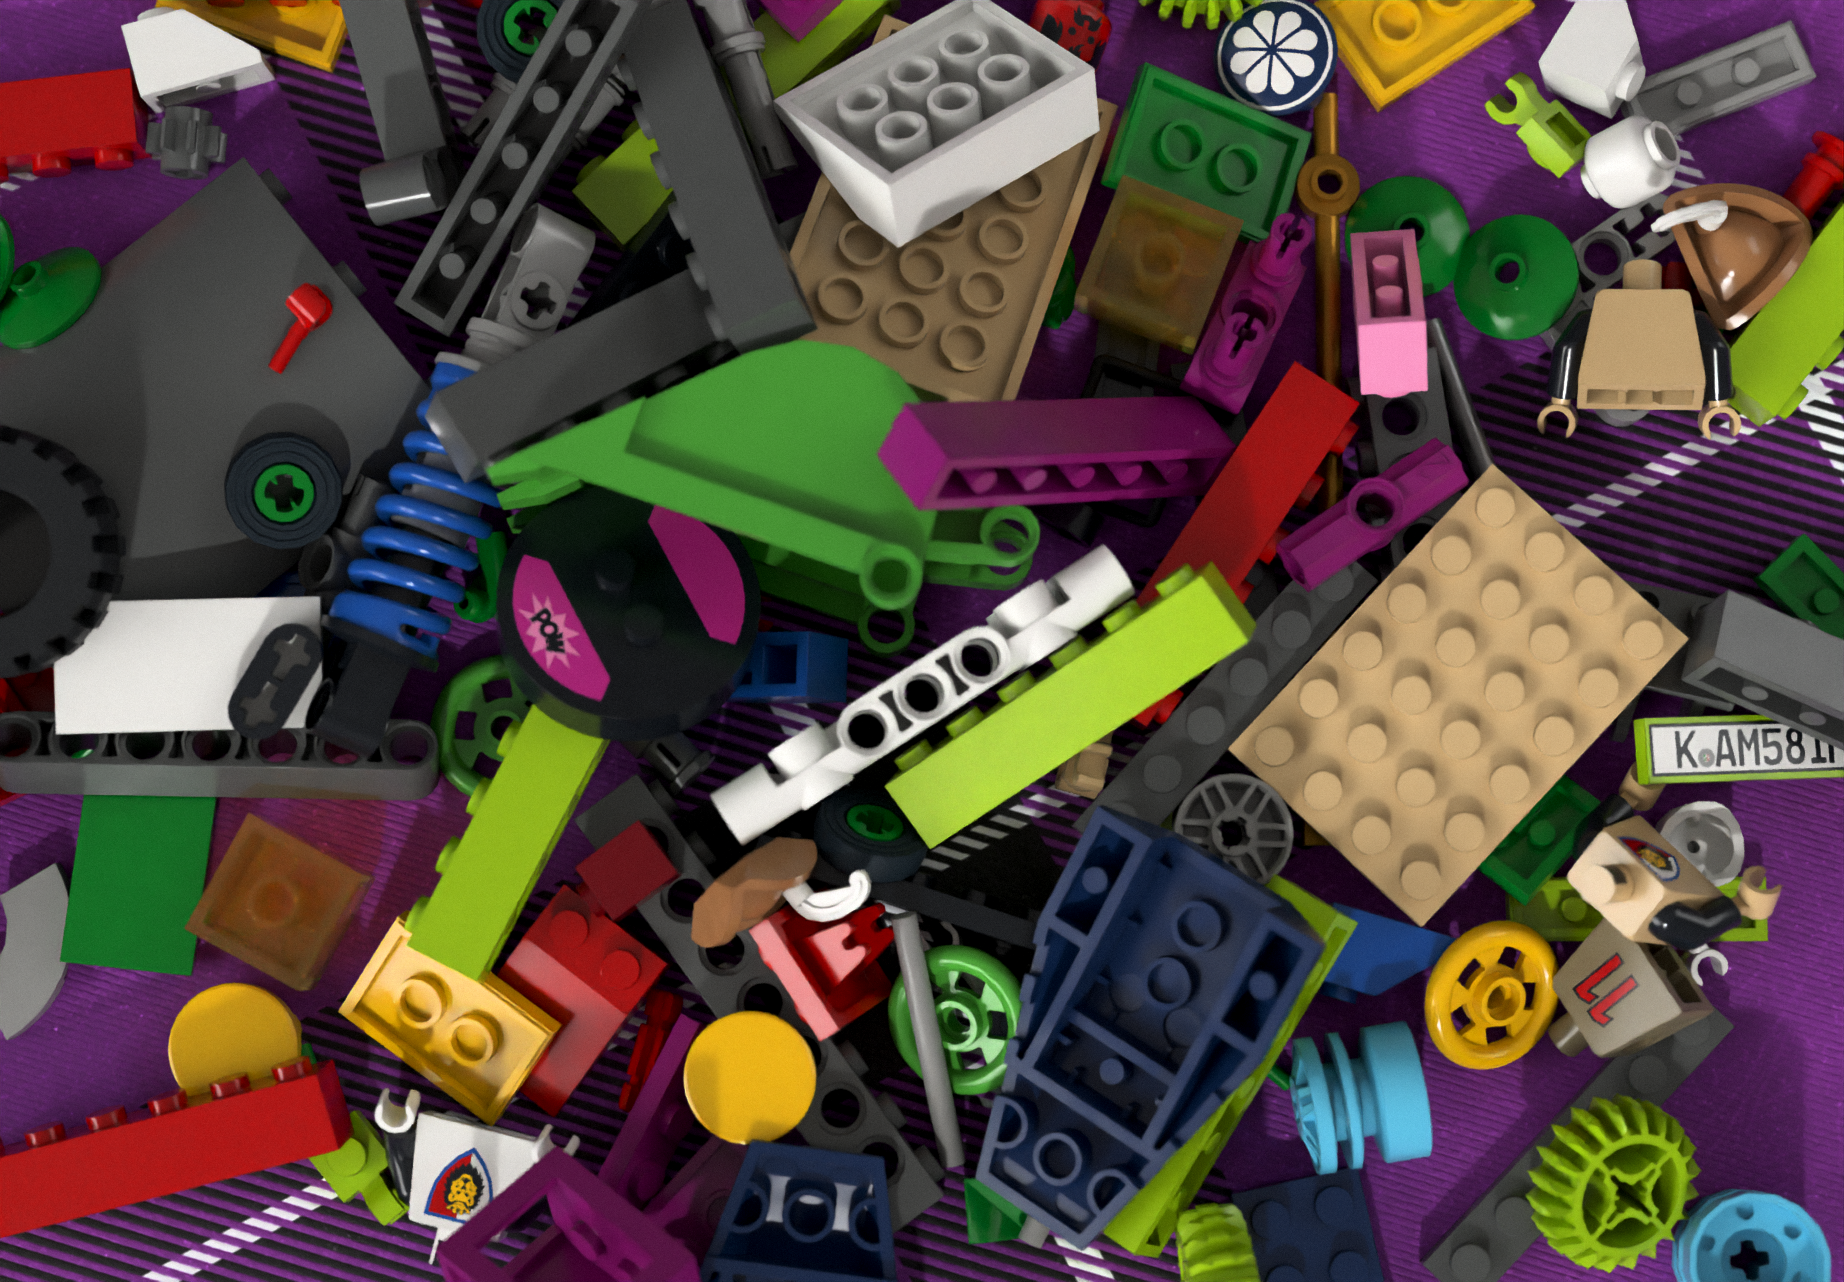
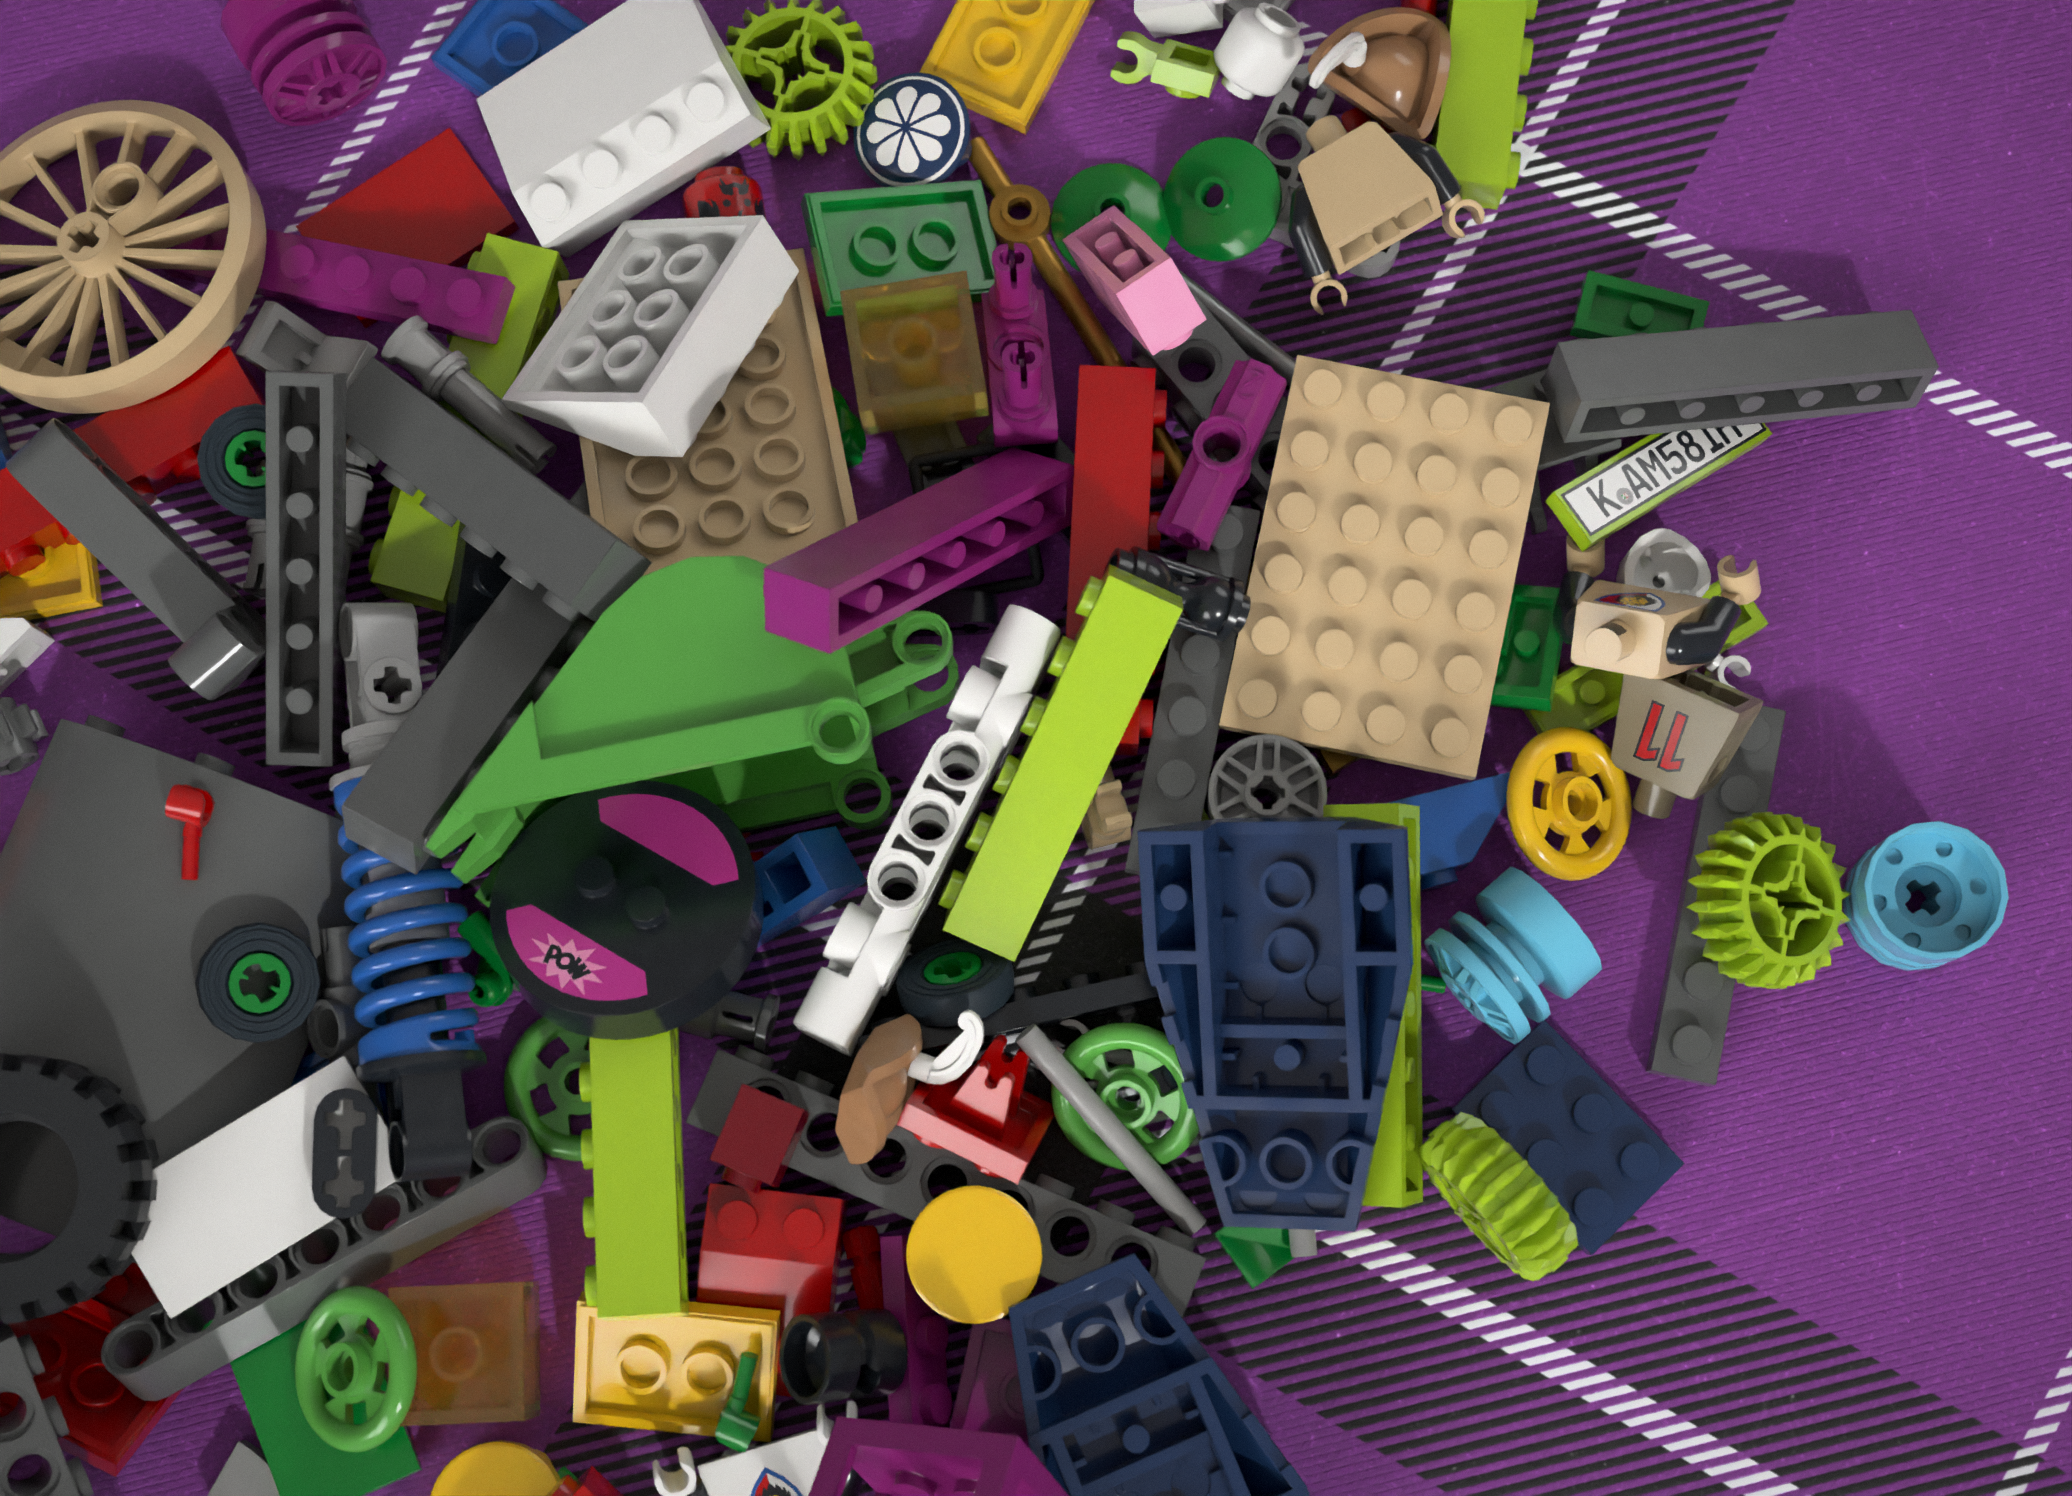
camera: 30 degrees left, 5 degrees down
(183, 864) = (355, 1369): none -> bright green plate
(470, 1097) = (736, 1425): none -> green hand
(592, 1095) = (843, 1355): none -> black wheel
(1281, 642) = (1211, 603): none -> black piece

